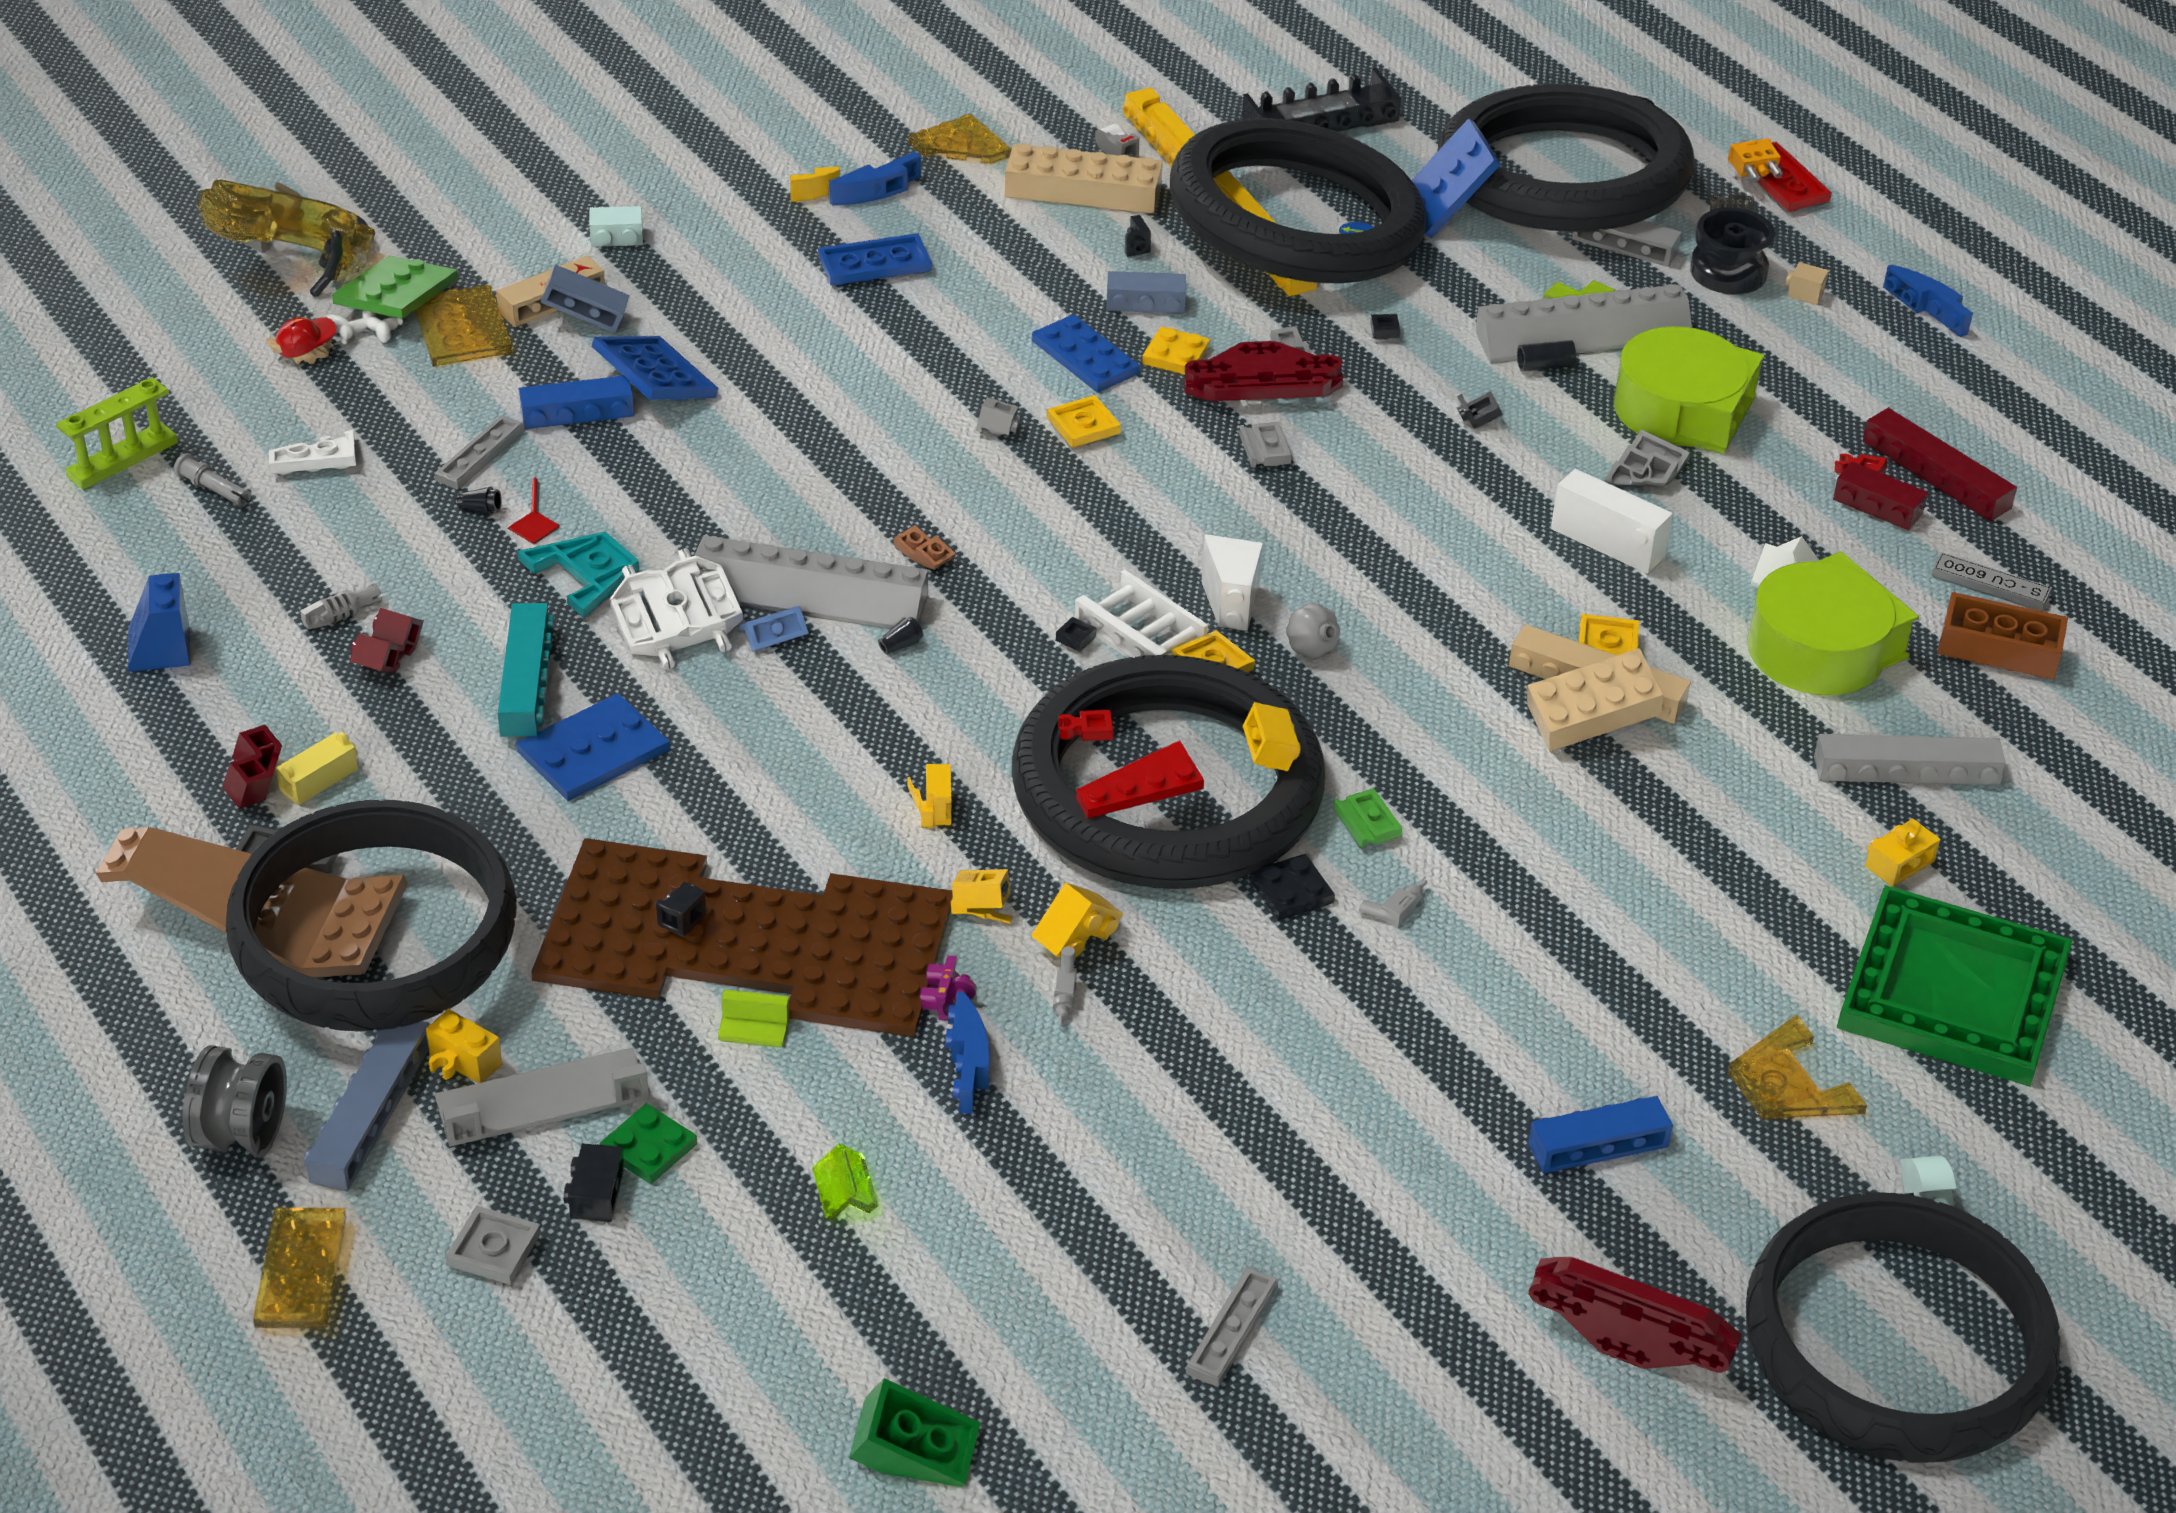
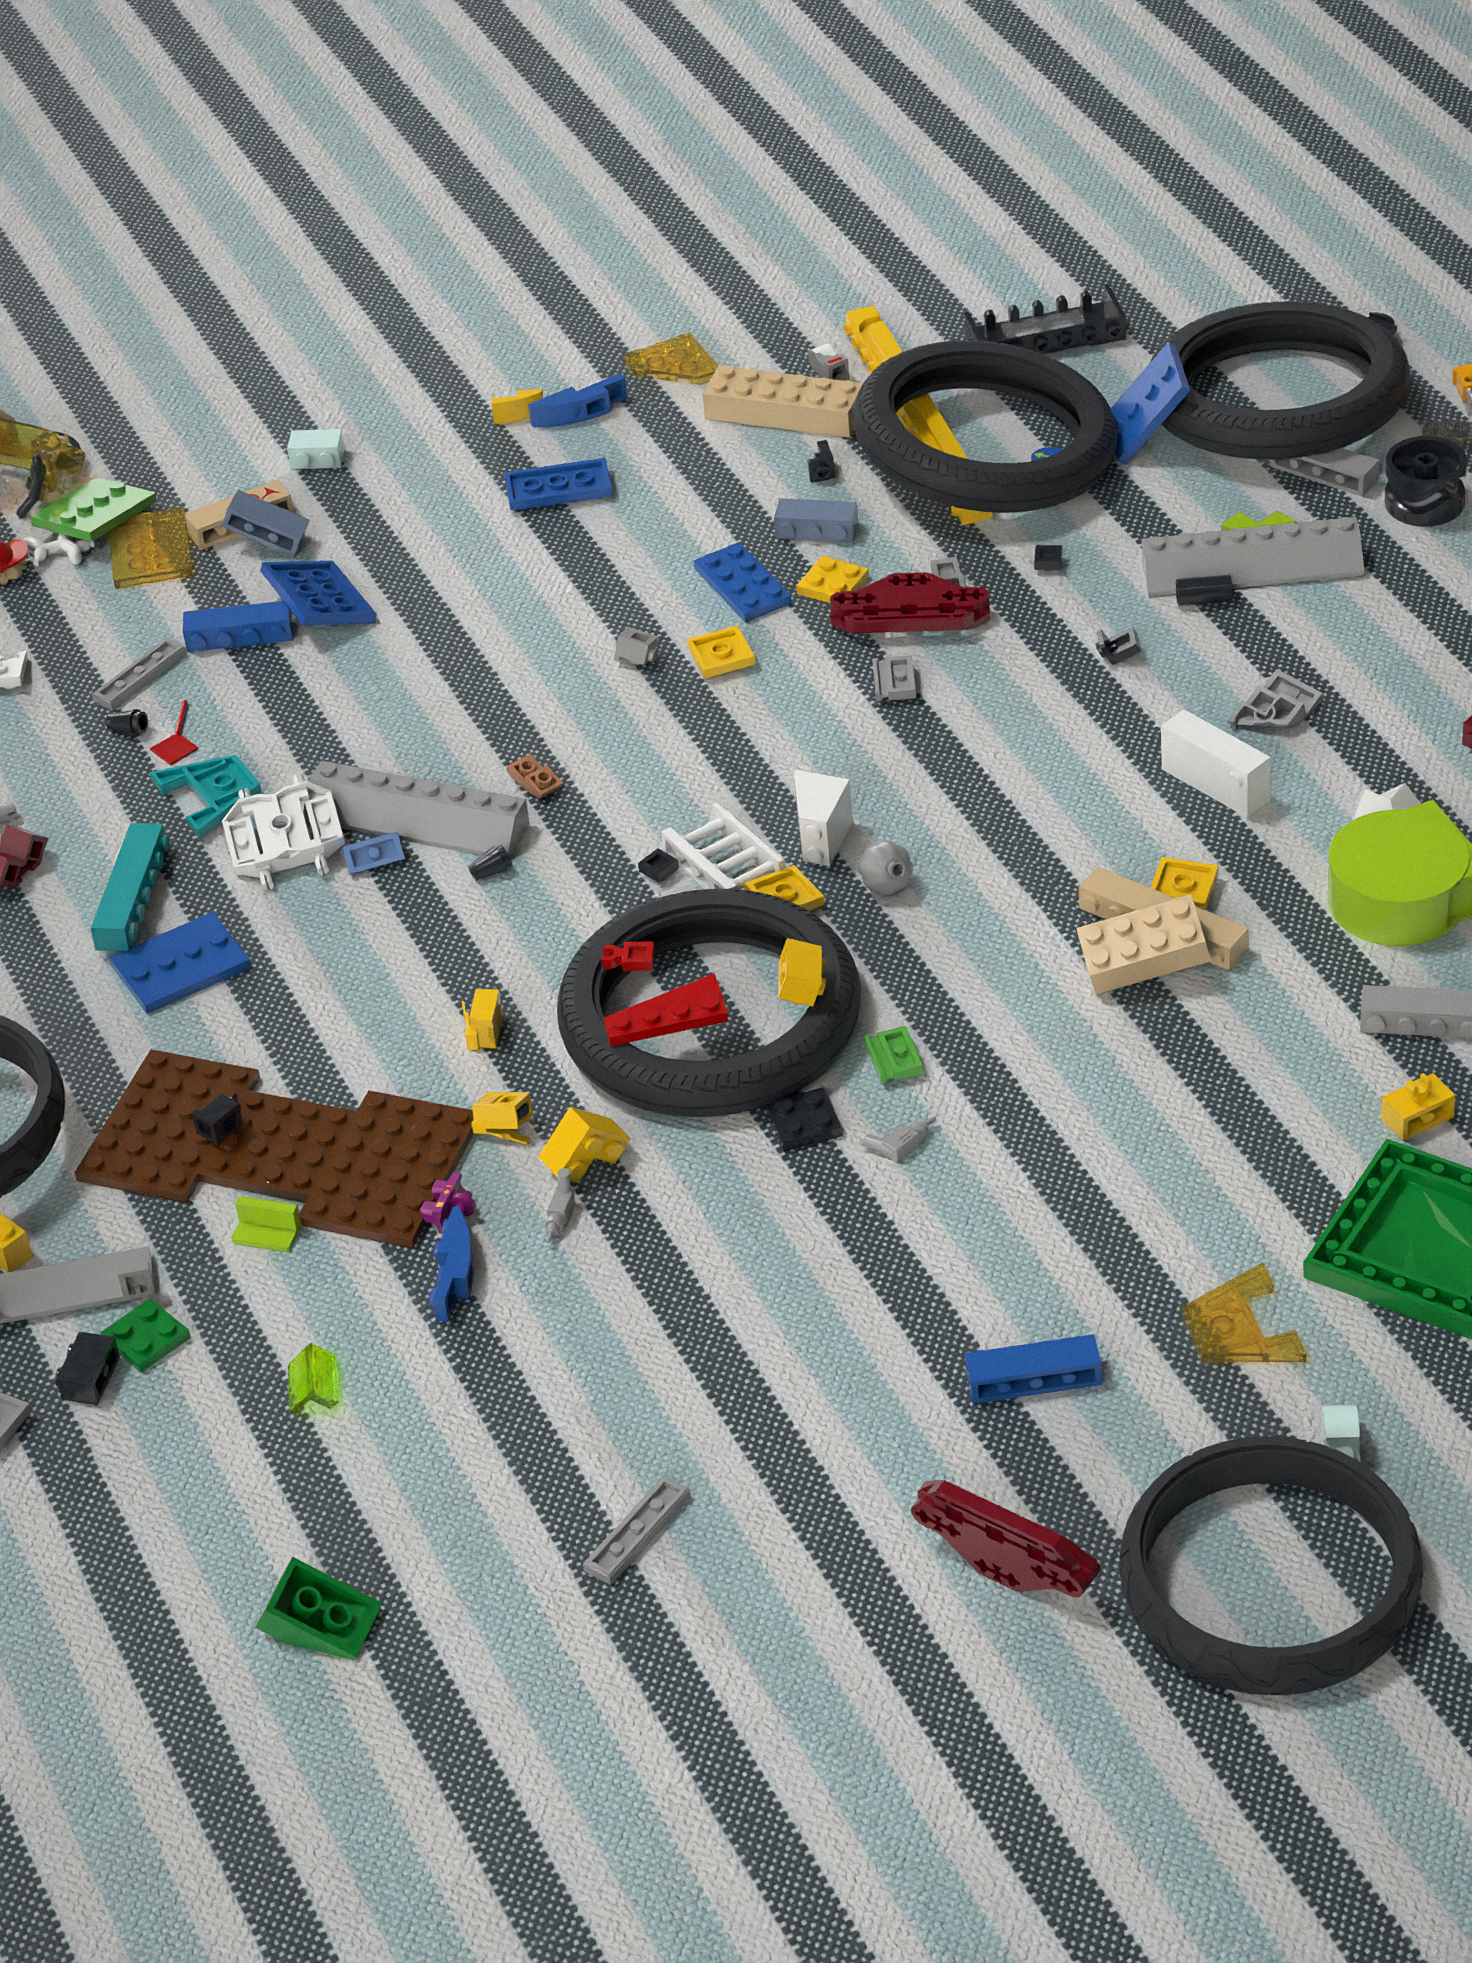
camera: 15 degrees right, 0 degrees up
(1686, 386) = (1335, 625): lime brick -> none

